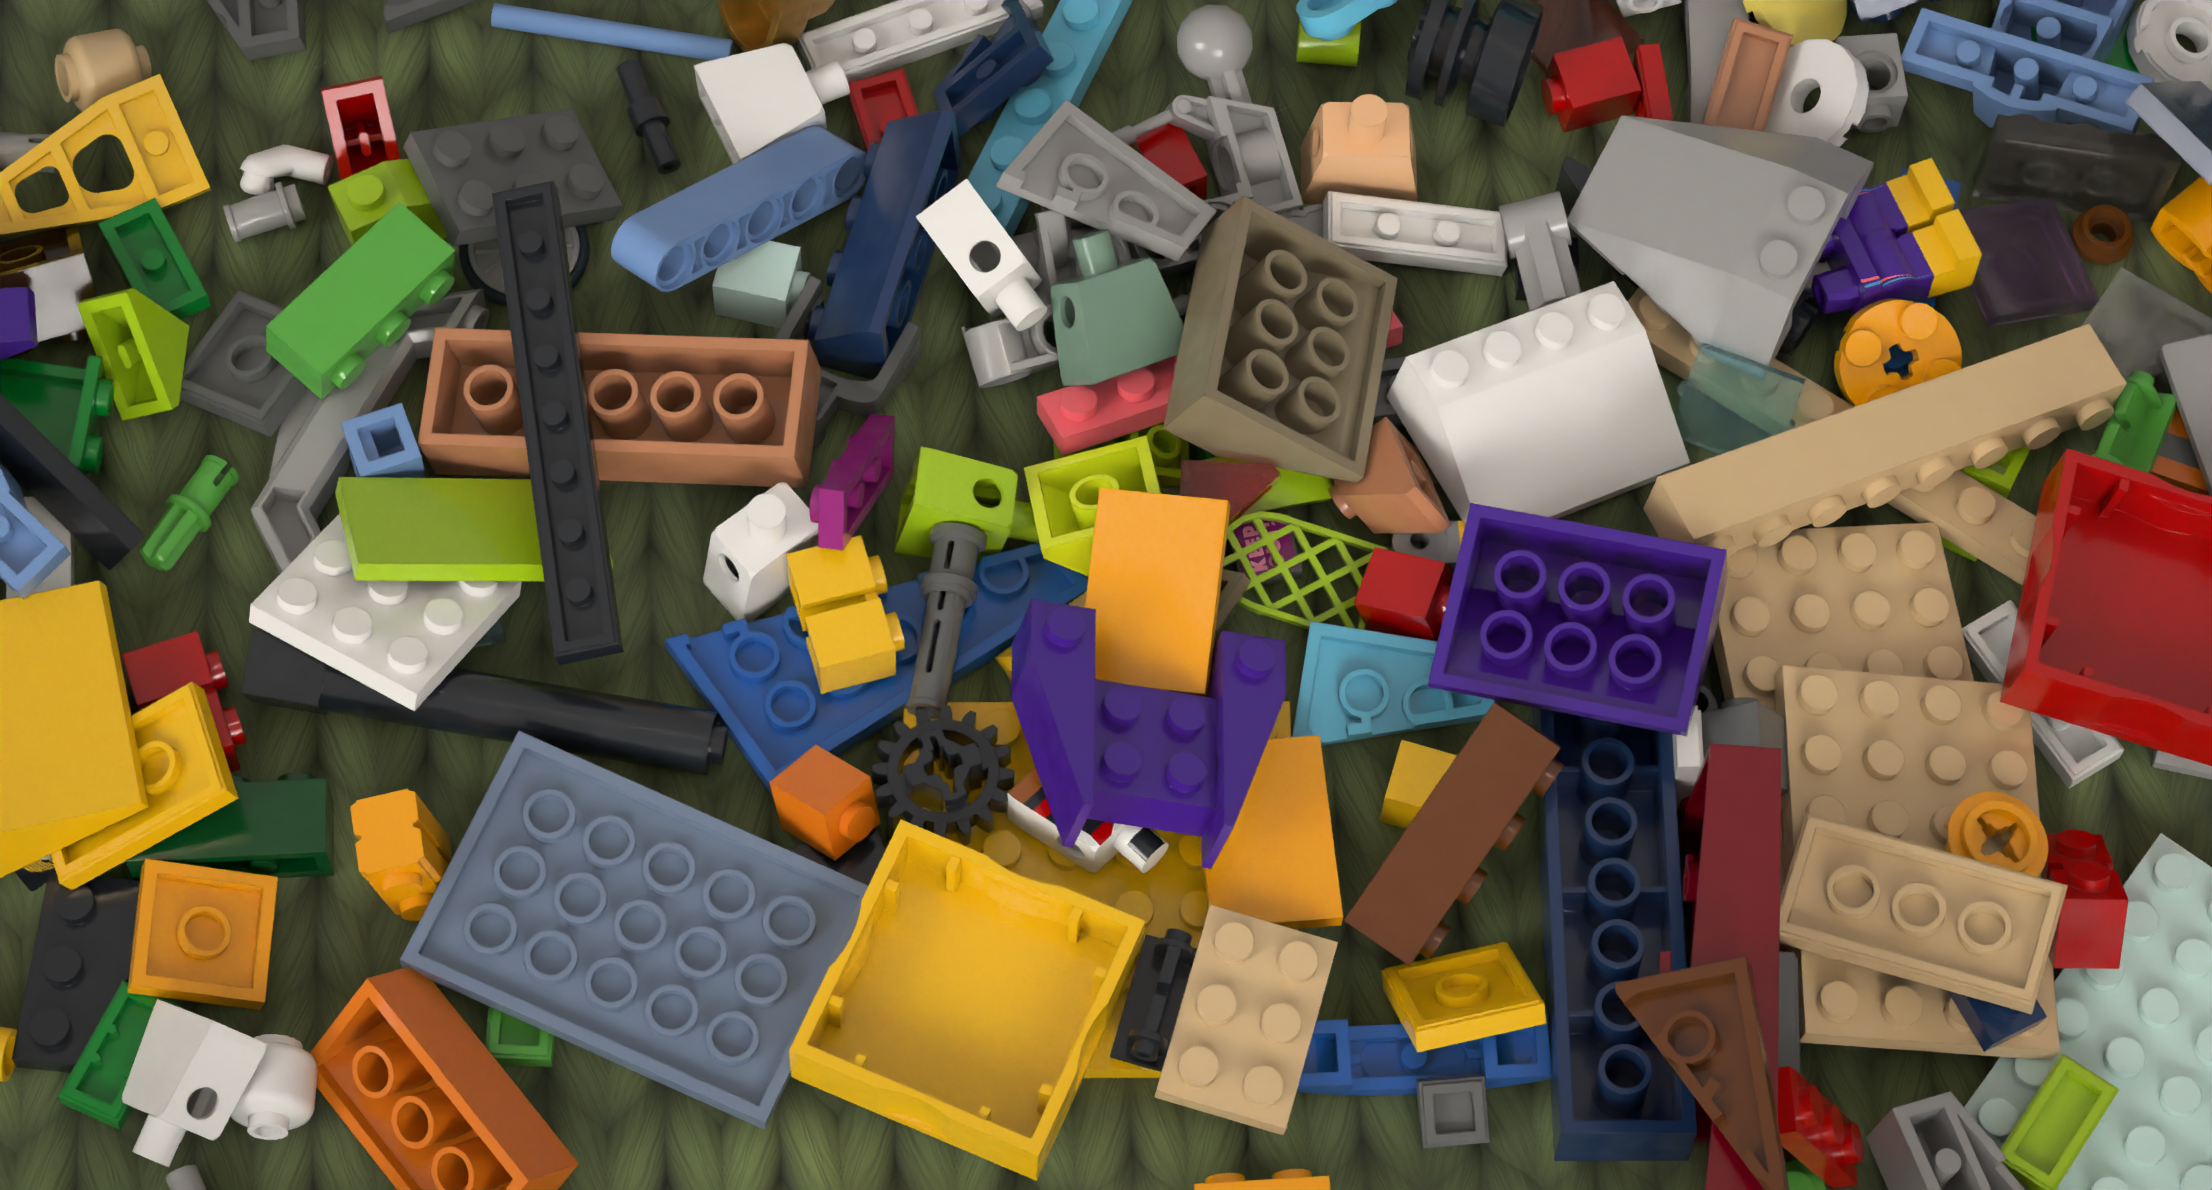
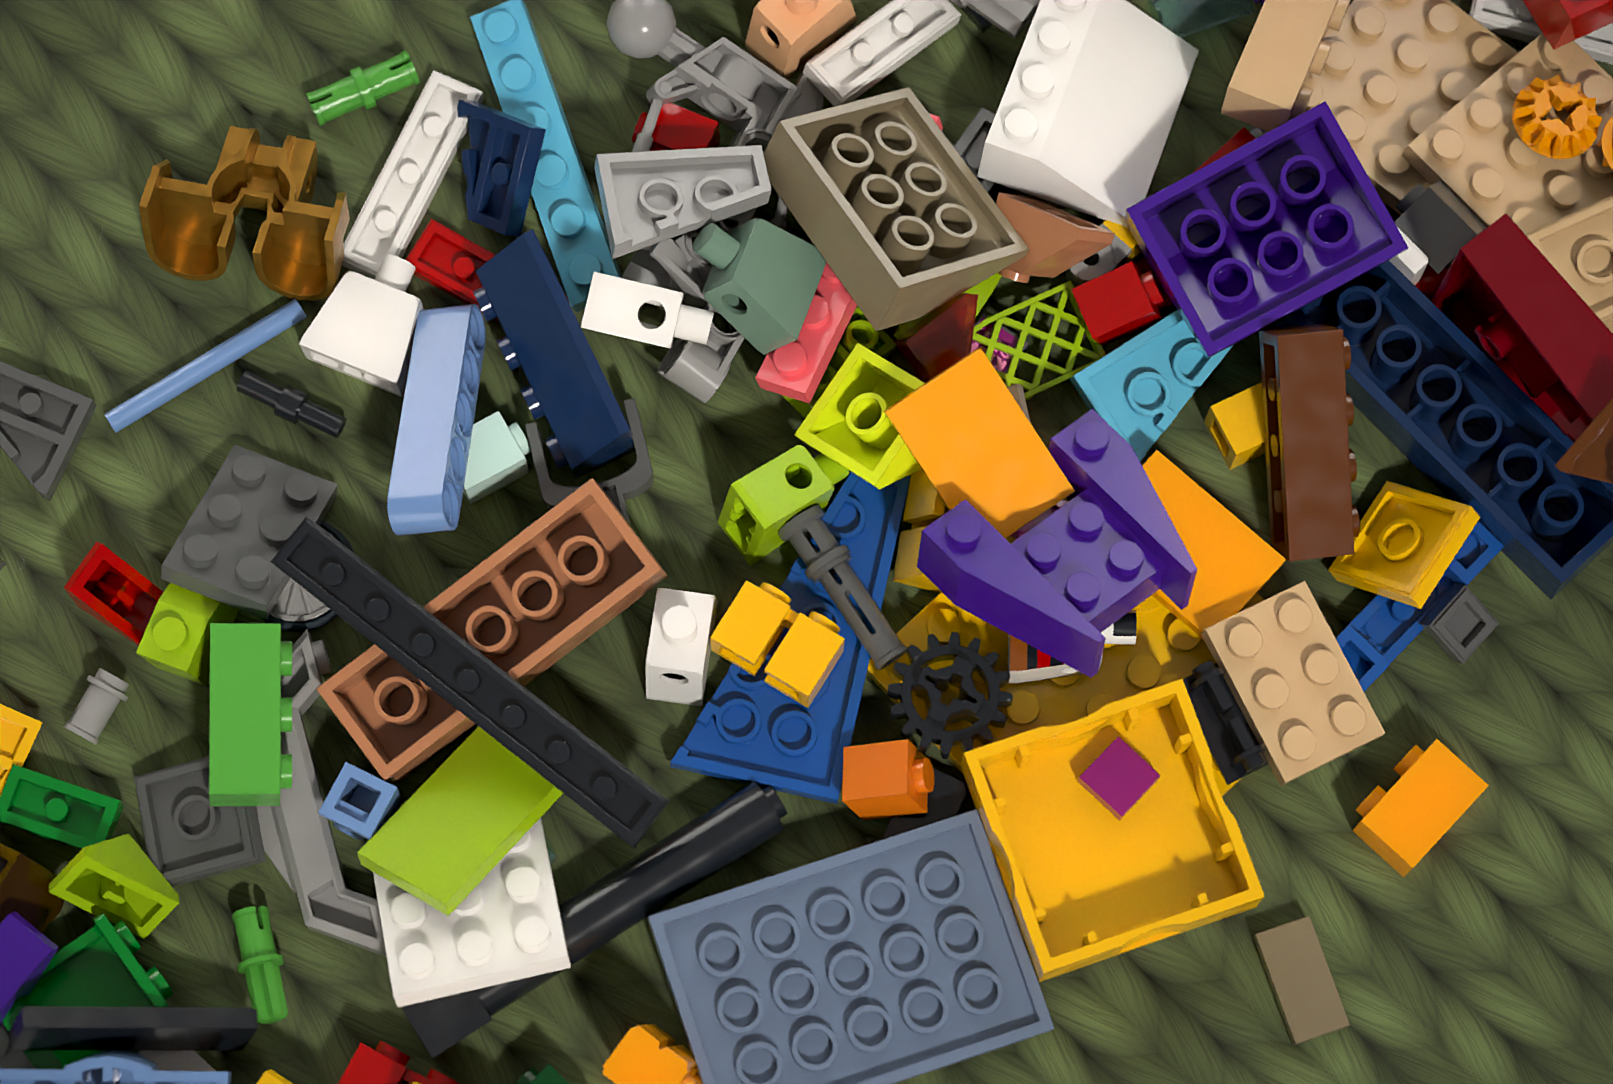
camera: 40 degrees left, 10 degrees up
(283, 161) = (69, 661): white arm -> none
(854, 482) = (699, 547): magenta plate -> none
(1019, 967) = (1118, 778): none -> magenta tile
(1918, 760) = (1549, 136): none -> light orange gear

